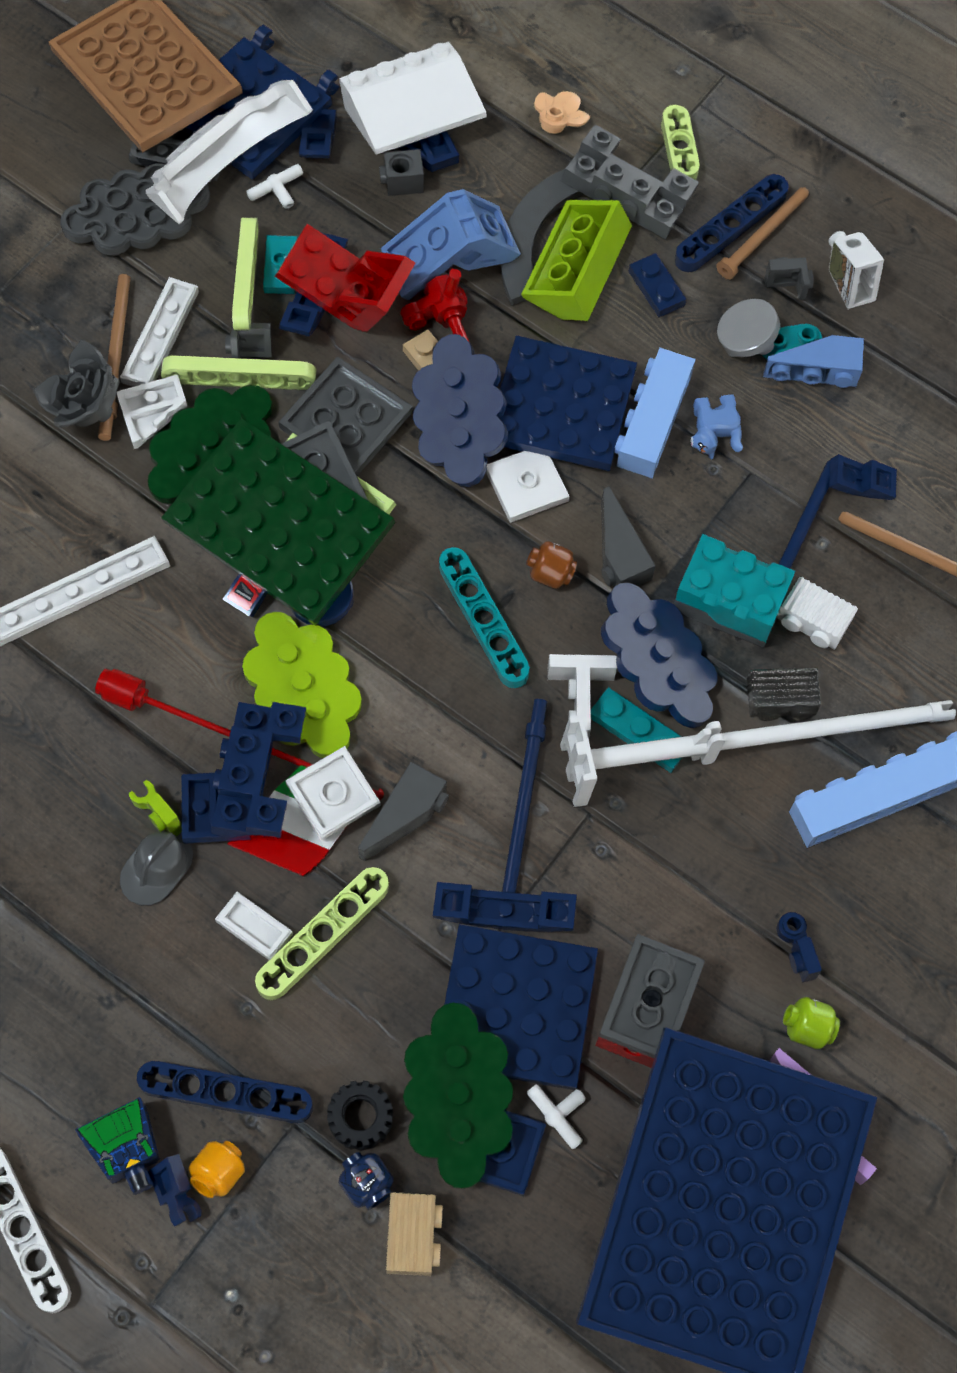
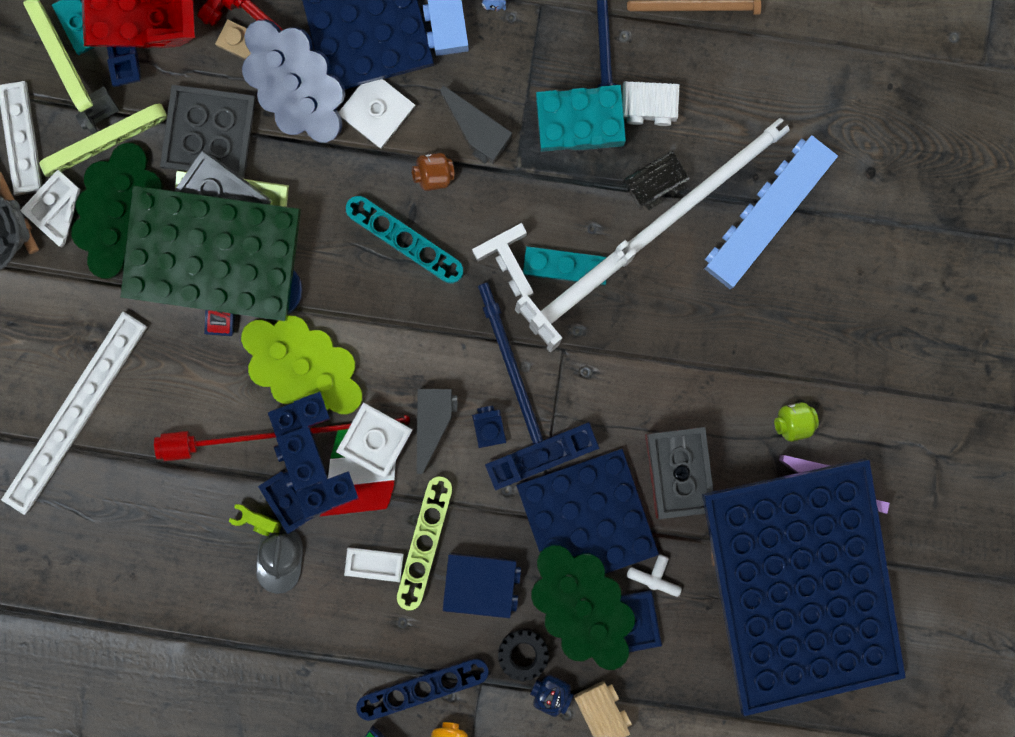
camera: 25 degrees left, 20 degrees up
(357, 1010) = (481, 585): none -> dark blue brick
(464, 847) = (488, 427): none -> dark blue bracket
(659, 655) = (551, 202): dark blue plate -> none
(803, 955) = (768, 376): dark blue plate -> none

